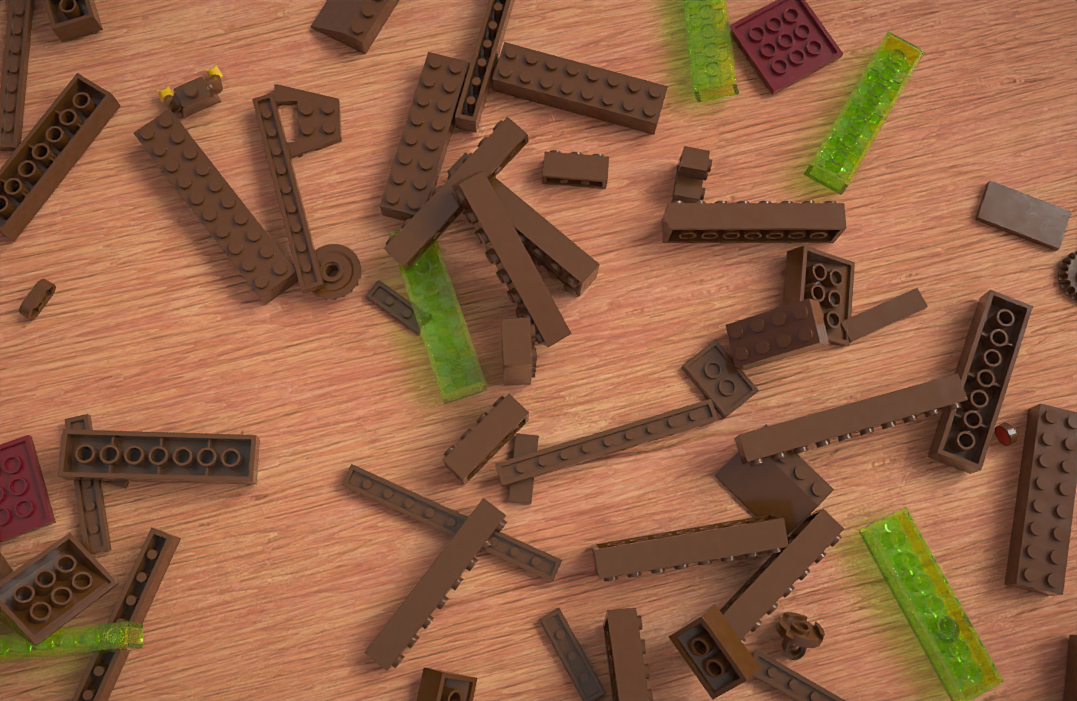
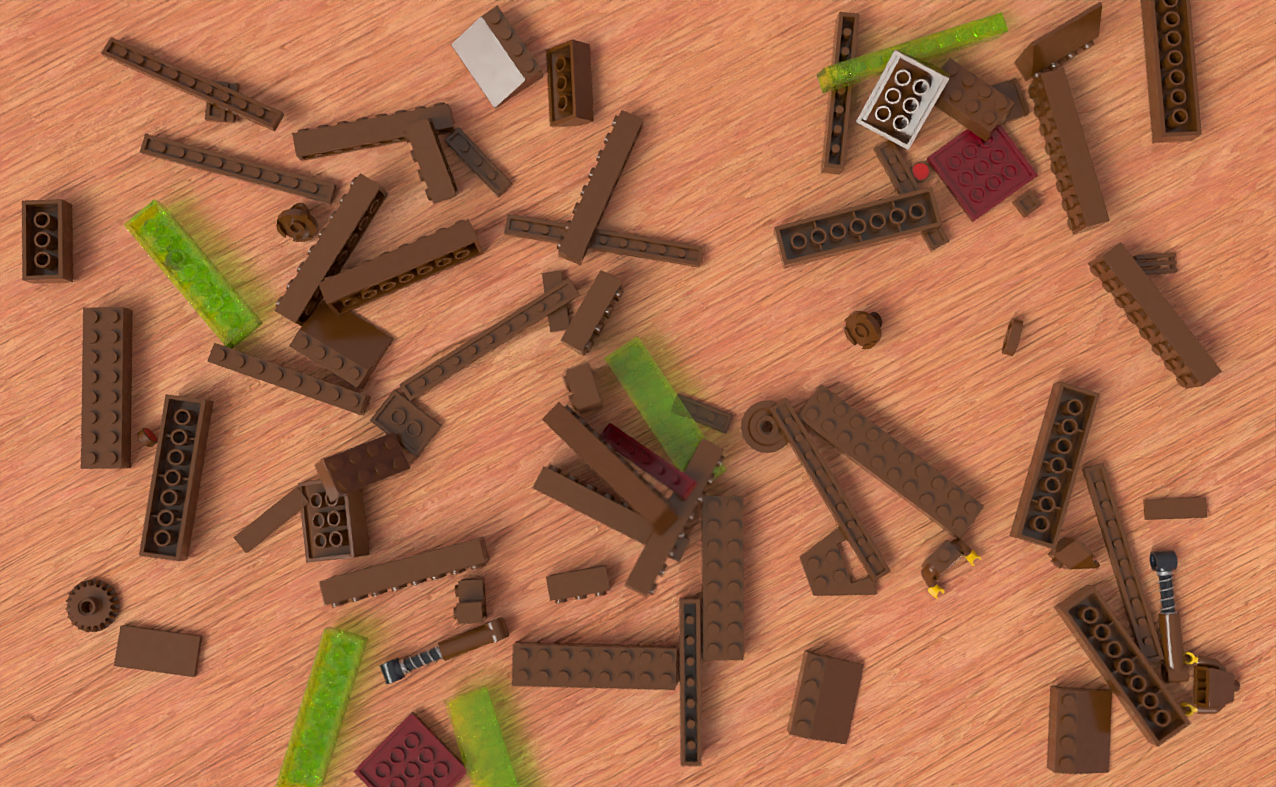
camera: 170 degrees right, 10 degrees up
(62, 65) = (1072, 555): none -> reddish brown slope
(67, 509) = (920, 171): none -> red tile
(193, 346) = (863, 328): none -> reddish brown tile
(469, 261) = (649, 461): none -> dark red tile
(714, 652) = (362, 182): reddish brown slope -> none
(781, 135) = (447, 649): none -> piece
(850, 419) = (284, 406): reddish brown brick -> none
(851, 463) = (288, 379): none -> reddish brown brick

